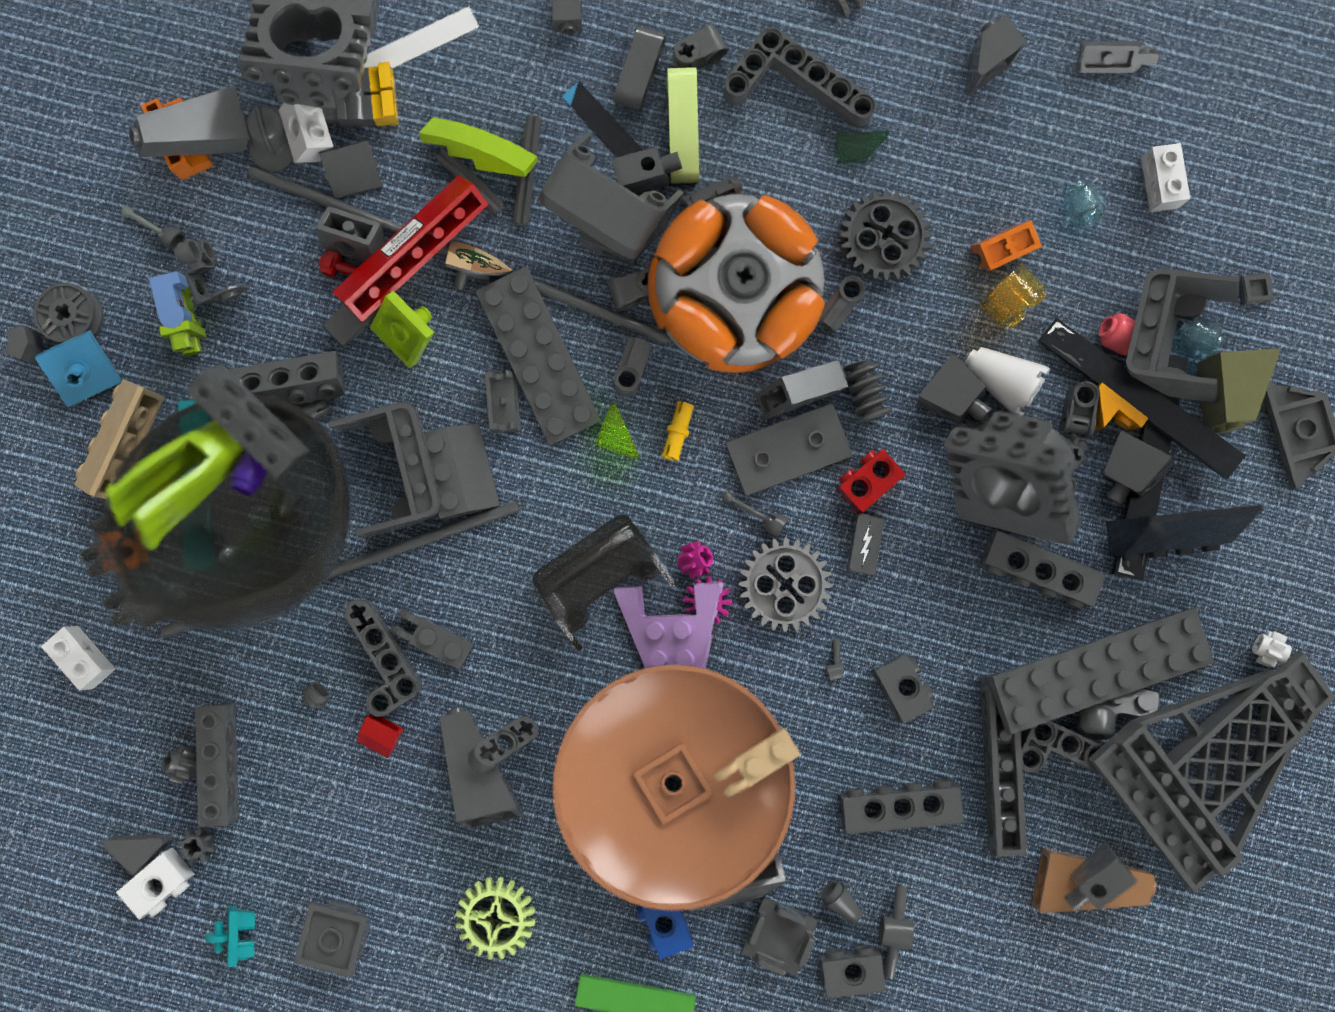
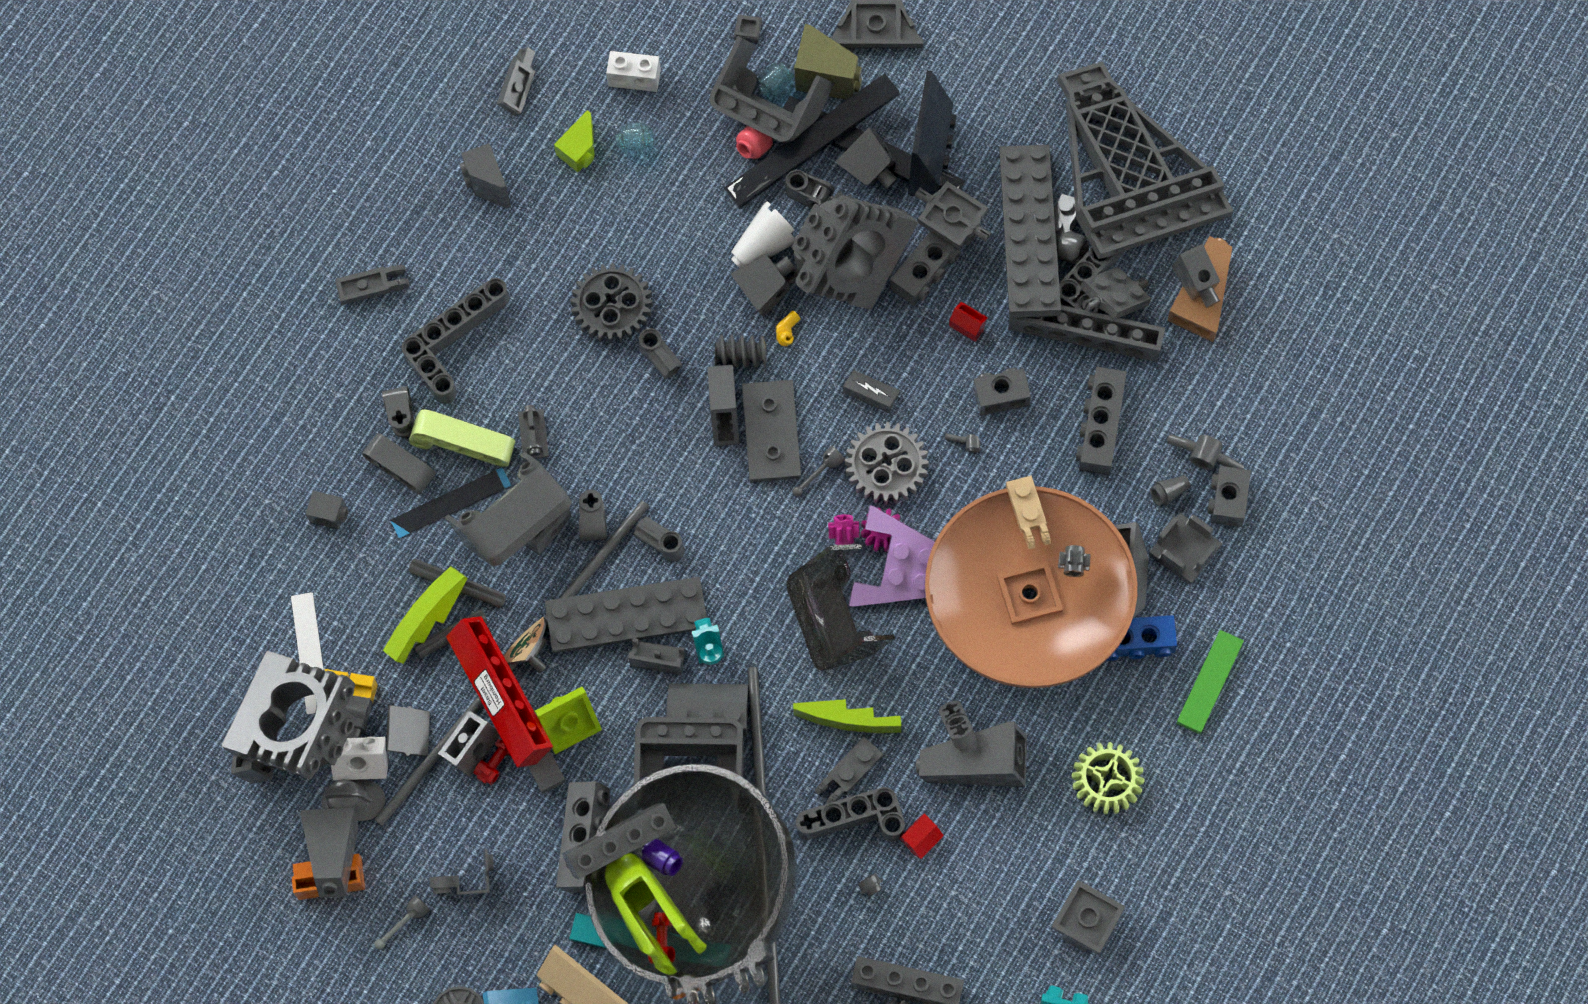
camera: 65 degrees left, 15 degrees down
(177, 313) = (492, 911): hips -> none
(487, 609) = (836, 715): none -> lime slope
(524, 451) = (707, 642): none -> teal hips
(615, 436) = (716, 567): clear neon green slope -> none
(645, 170) = (497, 485): dark grey torso -> none
(677, 431) = (728, 516): yellow pin -> none
(710, 830) = (1074, 561): none -> dark grey gear
(760, 255) = (618, 425): piece -> none
(858, 146) = (525, 304): clear green tile -> none
(873, 485) = (823, 369): red brick -> none
(909, 430) = (784, 328): none -> yellow arm
(975, 628) = (967, 321): none -> red piece
(1007, 245) = (650, 208): orange hinge -> none
(1013, 297) = (697, 214): clear yellow brick -> none
(1053, 786) = (1115, 293): none -> dark grey plate
(1062, 144) = (577, 143): none -> lime slope
(1094, 580) = (952, 215): none -> dark grey plate
(1113, 405) = (815, 160): light orange slope -> none
(1271, 649) = (1049, 98): white gear -> none

